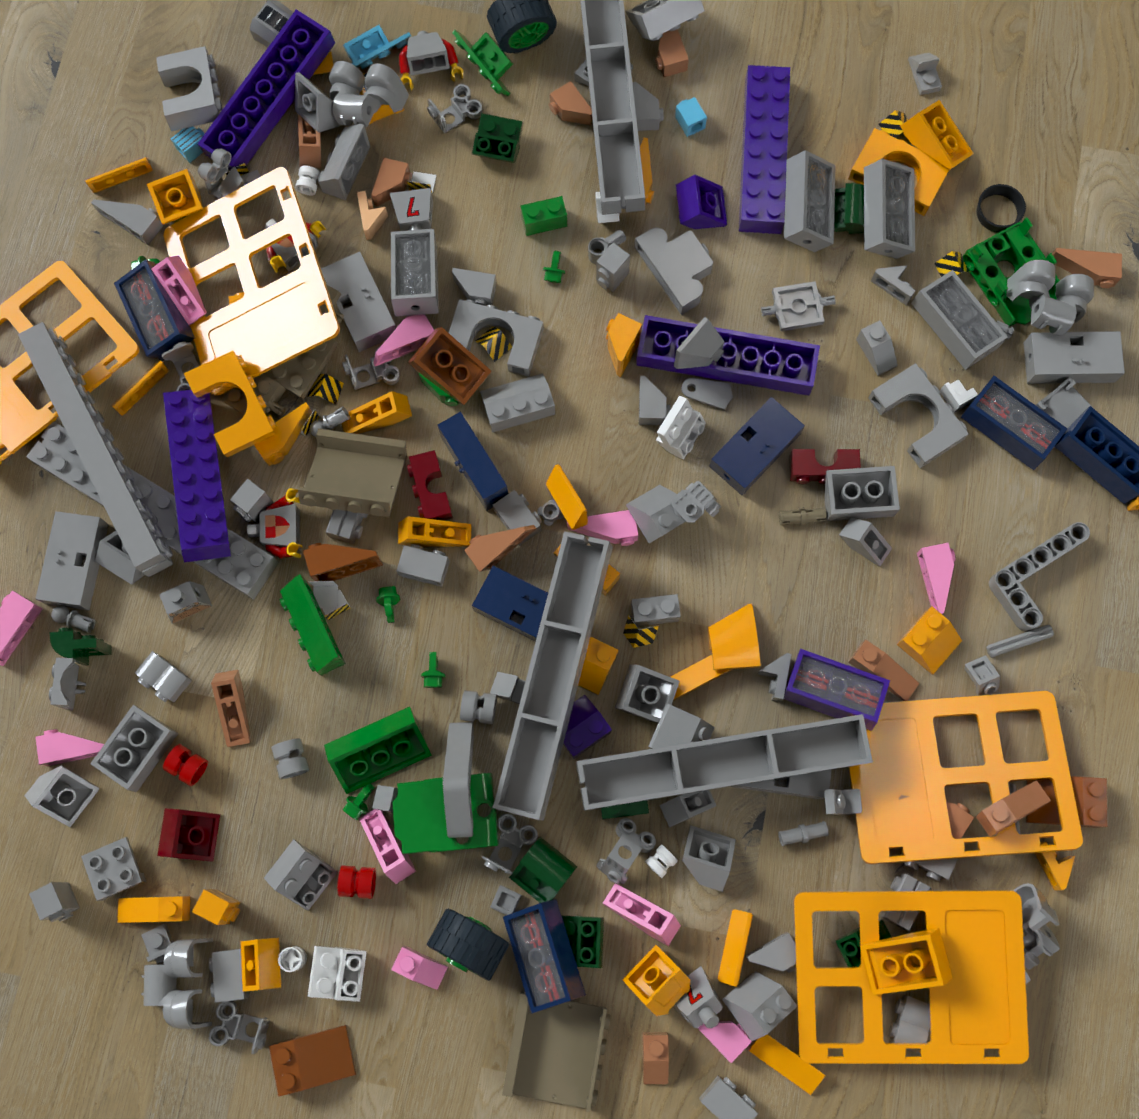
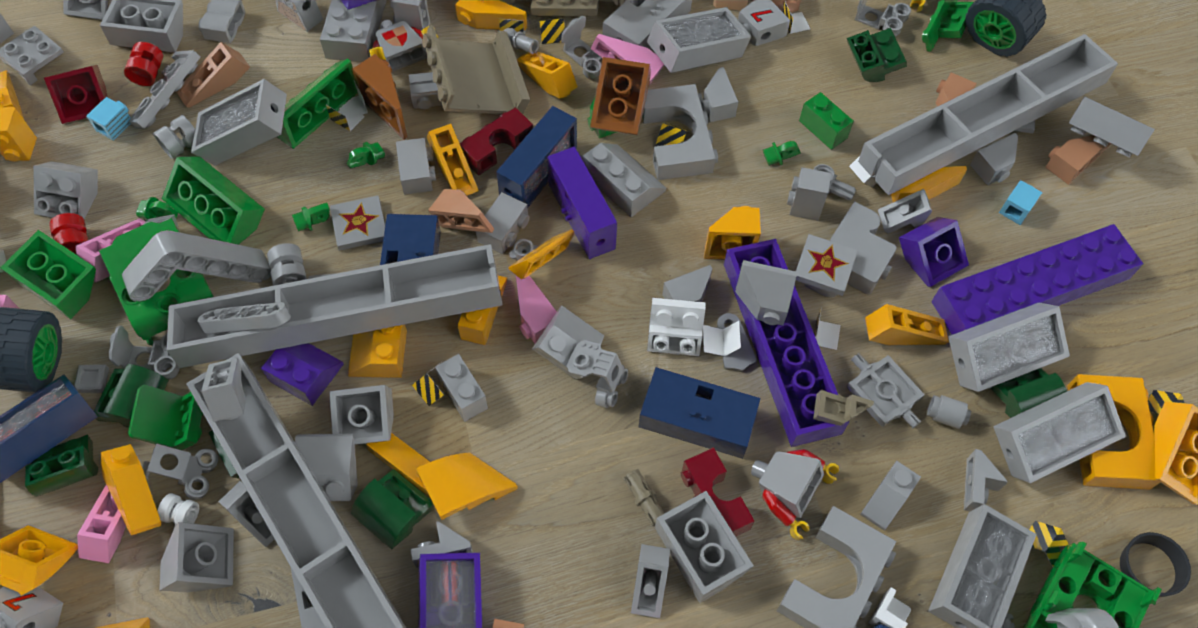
camera: 60 degrees right, 15 degrees down
(217, 744) = (184, 64): none -> light grey wing
(234, 813) = (109, 118): none -> medium azure brick
(317, 695) = (239, 122): none -> light grey brick
(394, 903) = (52, 273): none -> green slope
(456, 634) = (358, 222): none -> light grey tile
(534, 445) = (582, 203): none -> dark purple brick
(534, 746) = (244, 318): none -> light grey beam
(580, 842) = (165, 418): none -> green bracket
(611, 778) = (224, 390): none -> light grey arch
(631, 890) = (129, 489): none -> light orange slope
(660, 205) = (908, 210): none -> light grey slope
(683, 290) = (825, 264): none -> light grey tile
(706, 398) = (721, 340): none -> white sticker
(729, 320) = (826, 333): none -> white sticker
(731, 700) = (391, 508): none -> dark green brick
(756, 263) = (905, 327): none -> light orange slope
(809, 346) = (838, 409): none -> dark tan slope
(834, 272) = (949, 411): none -> light grey brick
(840, 410) = (790, 484): none -> light grey torso

